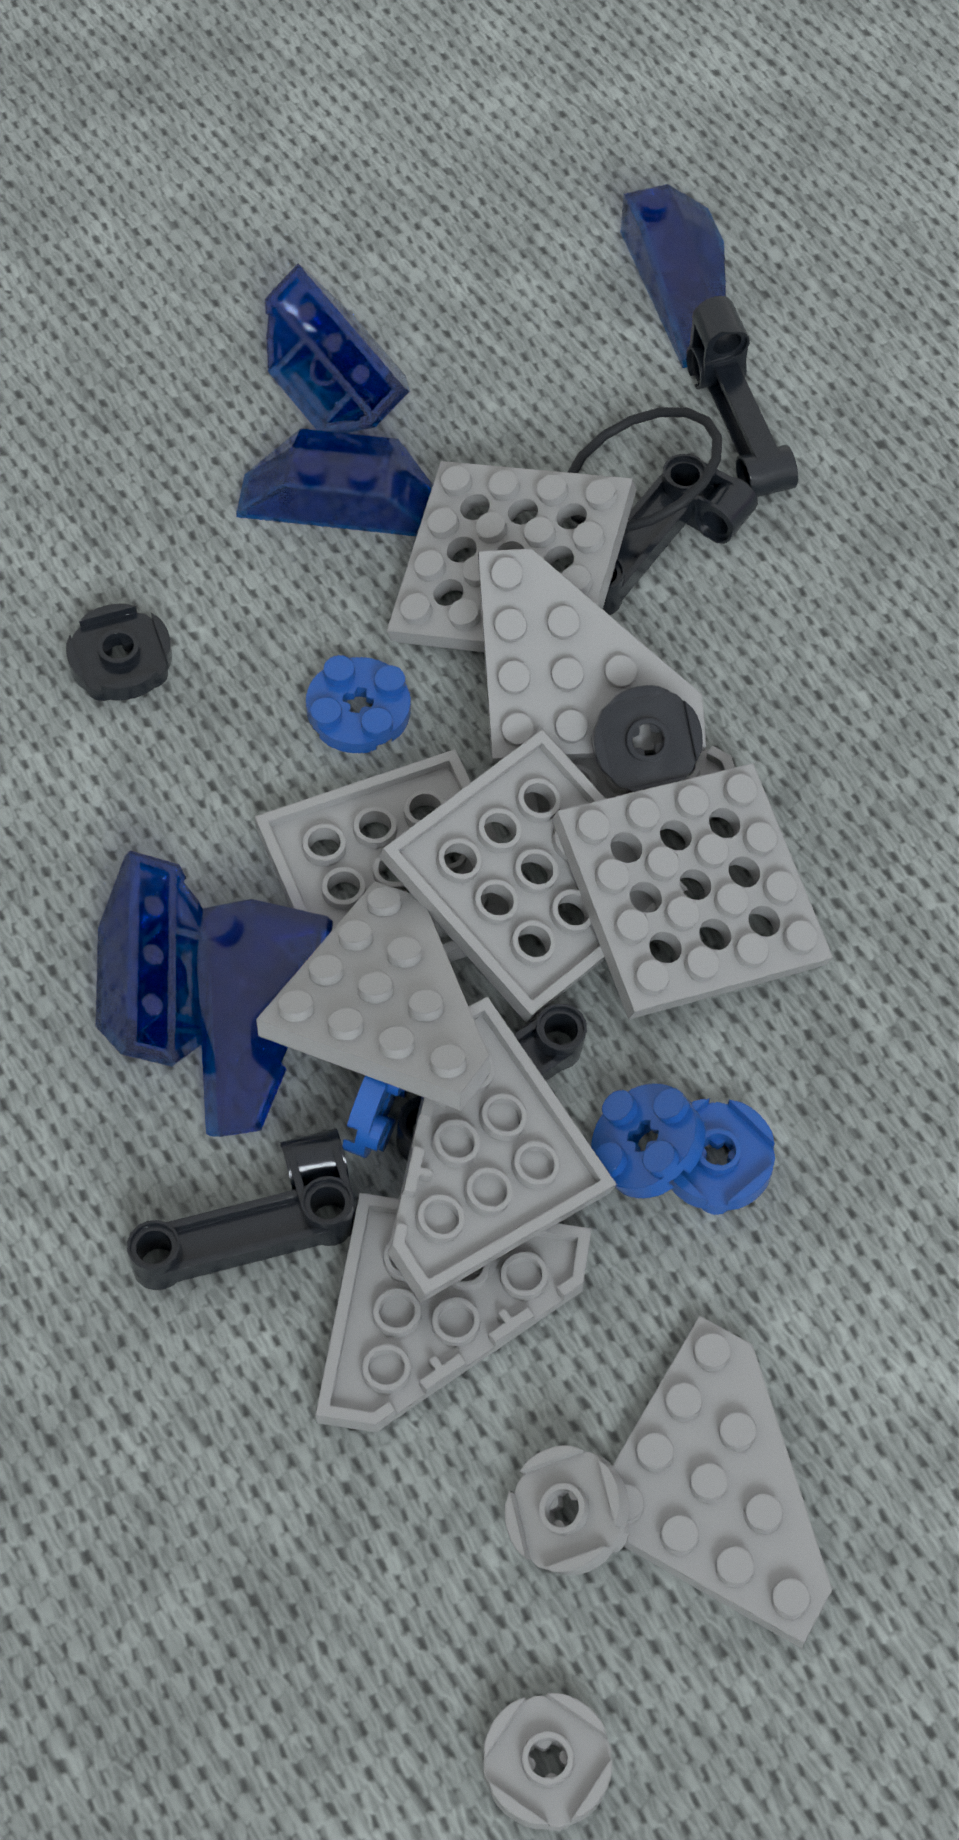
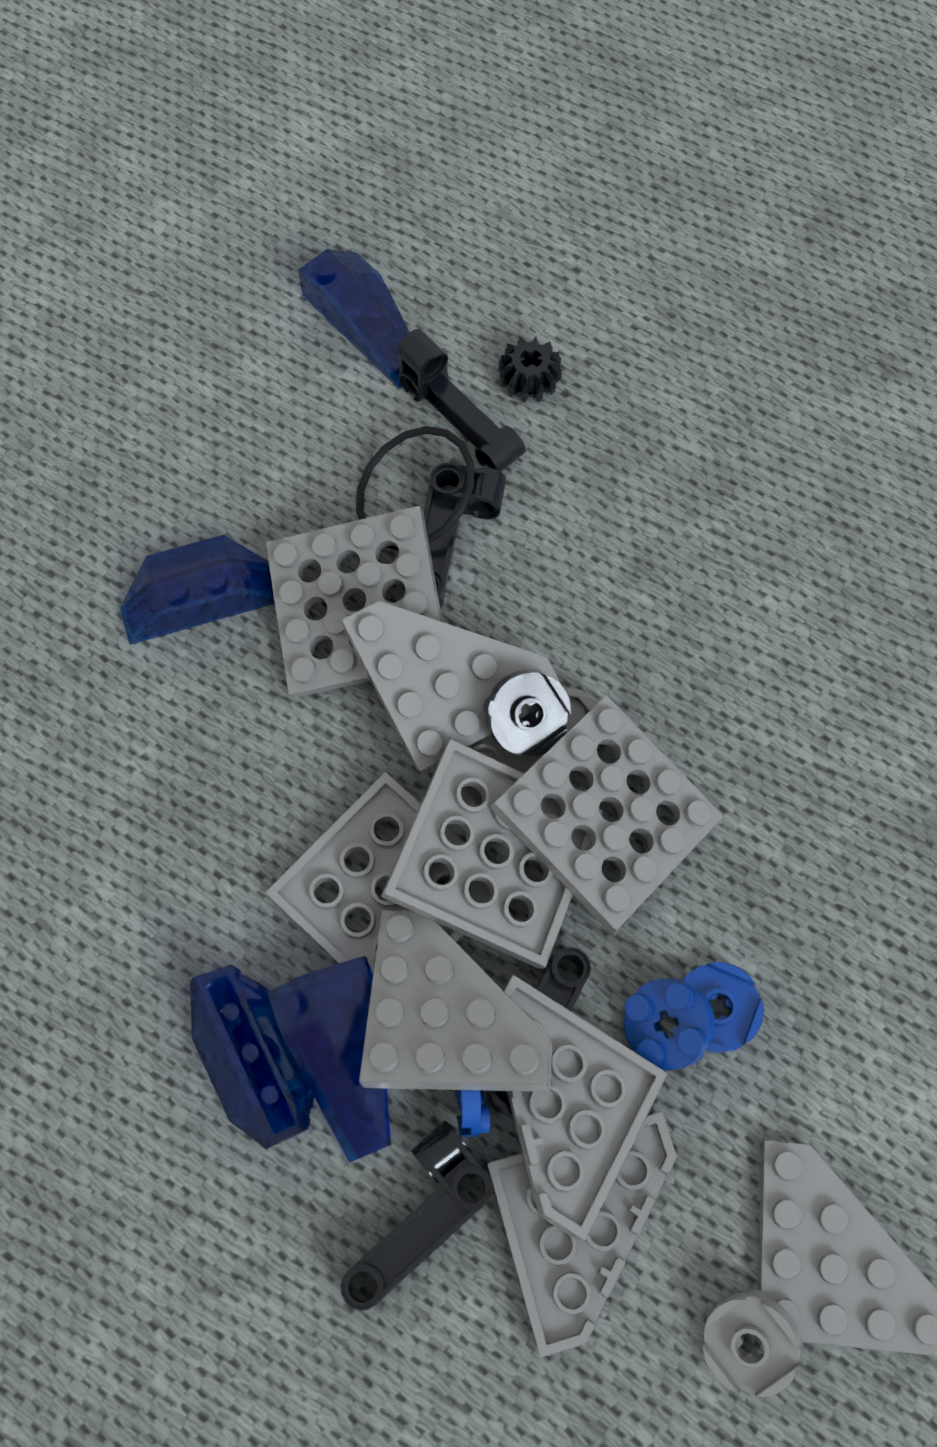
camera: 25 degrees left, 10 degrees up
(119, 677) = (96, 822): black plate -> none
(328, 358) = (142, 490): clear blue wedge -> none
(351, 678) = (280, 780): blue plate -> none
(848, 398) = (530, 369): none -> black gear

